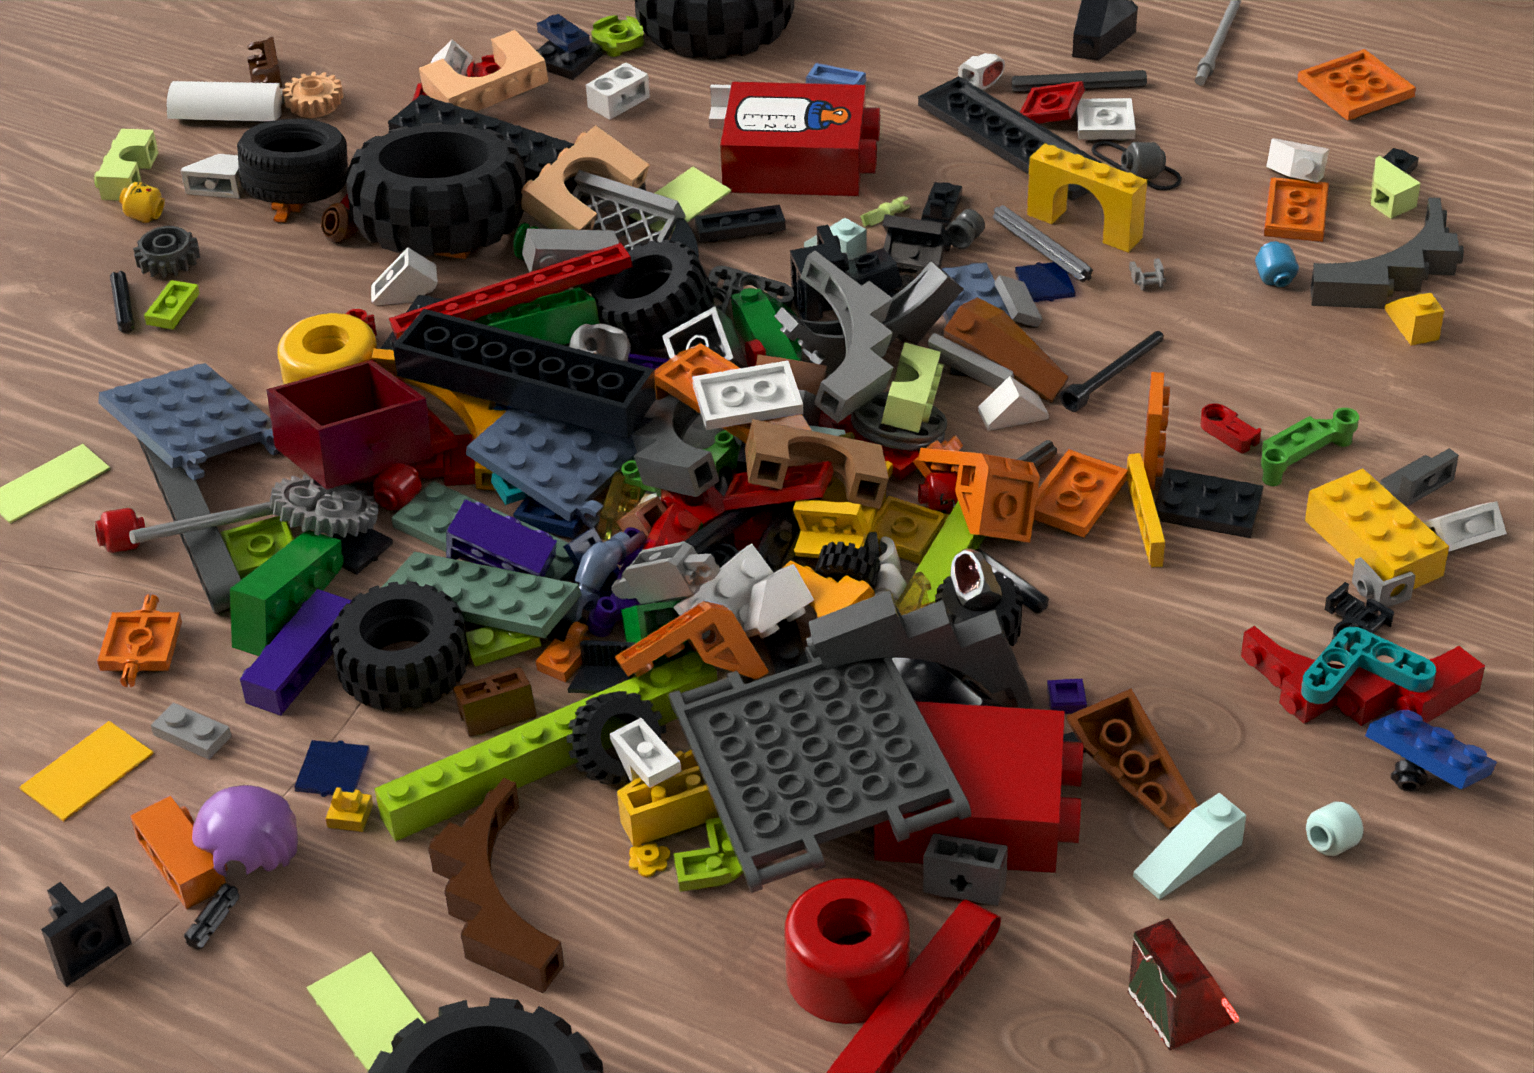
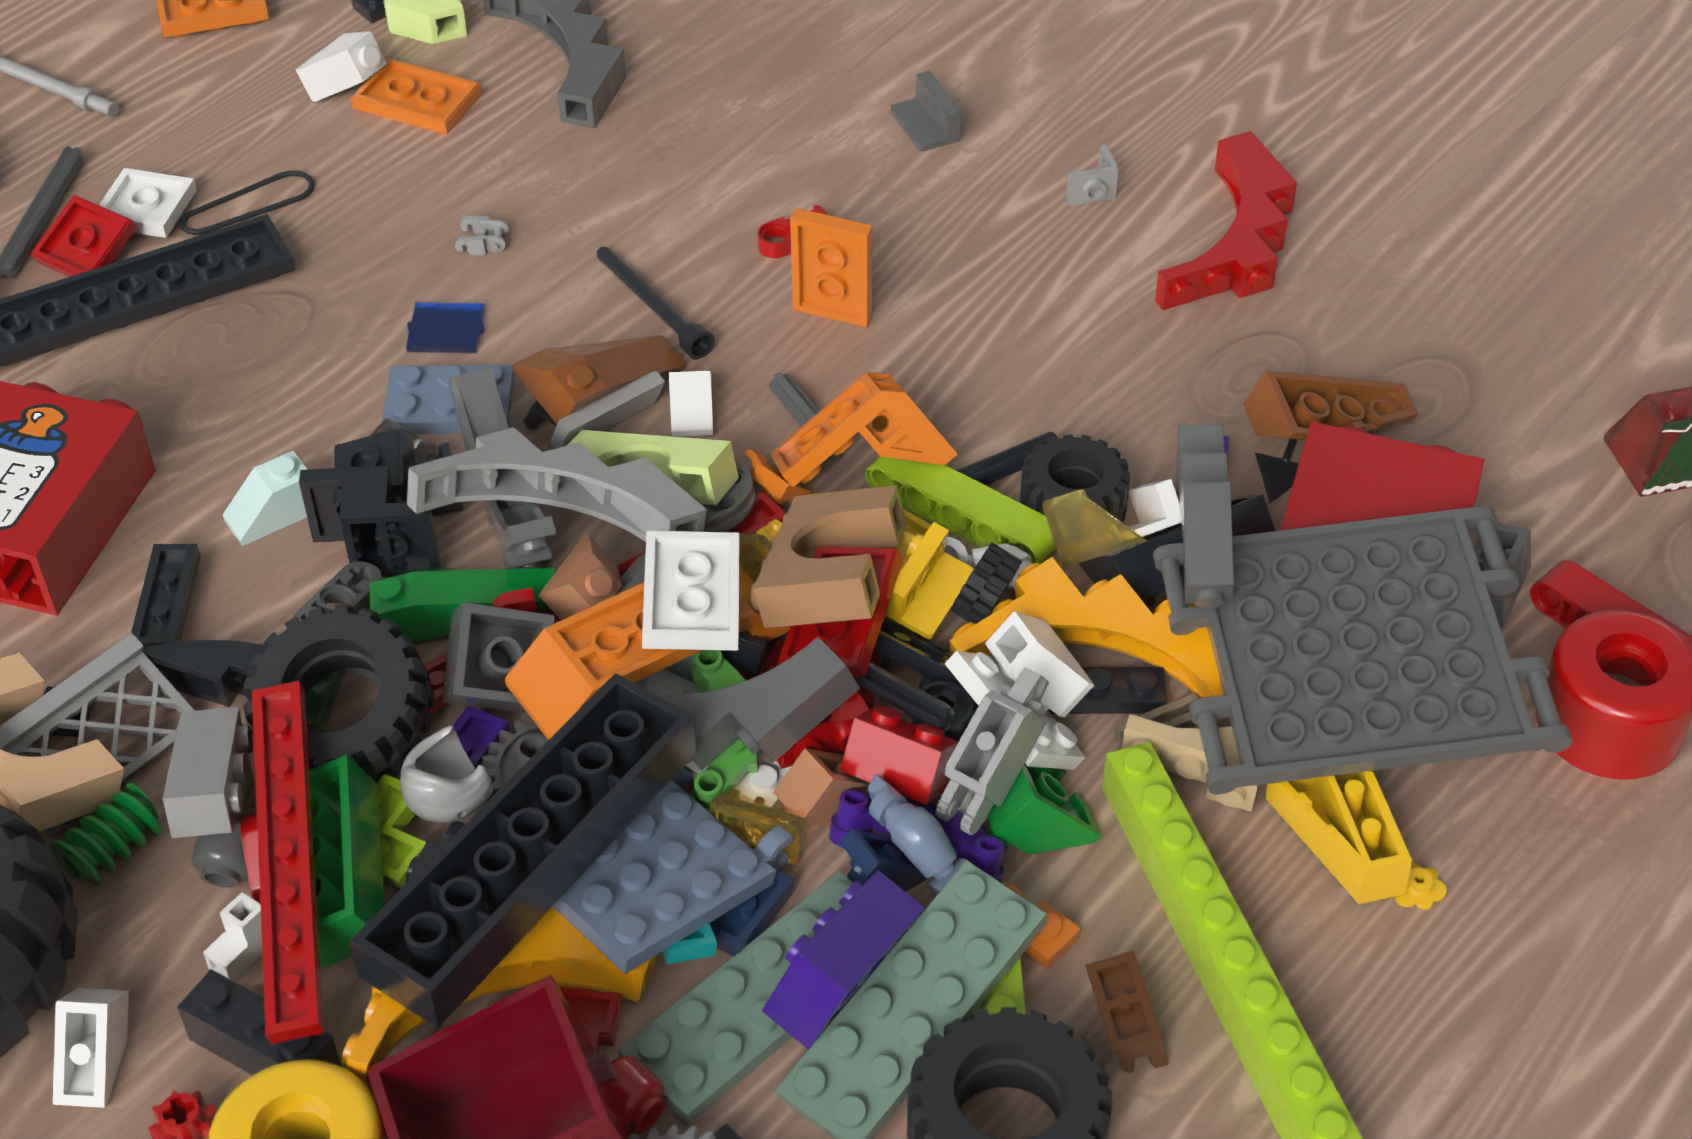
camera: 80 degrees left, 5 degrees up
(493, 930) = (1486, 1073): reddish brown arch -> none
(588, 728) = (1262, 861): black tyre -> none
(599, 666) = (1089, 882): black piece -> none
(644, 753) = (1326, 817): white slope -> none
(694, 193) = (72, 636): yellowish green window -> none
(710, 865) = (1451, 813): lime plate -> none
(724, 647) = (1106, 759): orange bracket -> none
(876, 216) = (220, 443): yellowish green piece -> none
(915, 240) = (329, 419): black bracket -> none
(939, 491) = (839, 474): red head -> none
(942, 203) = (233, 388): black plate -> none
(965, 228) = (313, 370): dark grey wheel -> none
(974, 580) = (1067, 458): dark grey rock -> none
(1018, 301) = (486, 352): light grey tile -> none
(1043, 243) = (376, 309): axle -> none
(1078, 492) = (862, 350): orange plate -> none
(1118, 192) = (294, 238): yellow arch -> none
(1144, 159) = (267, 183): dark grey head -> none
(1145, 510) = (924, 321): yellow tile -> none
(1193, 846) = (1458, 394): light aqua slope -> none
(1208, 502) = (919, 276): black plate -> none
(1276, 264) = (527, 127): dark azure head -> none
(1304, 439) = (846, 185): bright green plate -> none
(1334, 828) = (1446, 291): light aqua head -> none
(1356, 613) = (1140, 208): black piece -> none
(1364, 655) = (1221, 204): teal beam -> none
(1372, 524) = (1015, 160): yellow brick -> none
(1409, 776) = (1372, 227): black plate -> none
(1417, 317) = (664, 51): yellow slope -> none
(1431, 748) = (1348, 199): blue plate -> none
(1469, 525) = (1012, 99): white panel -> none

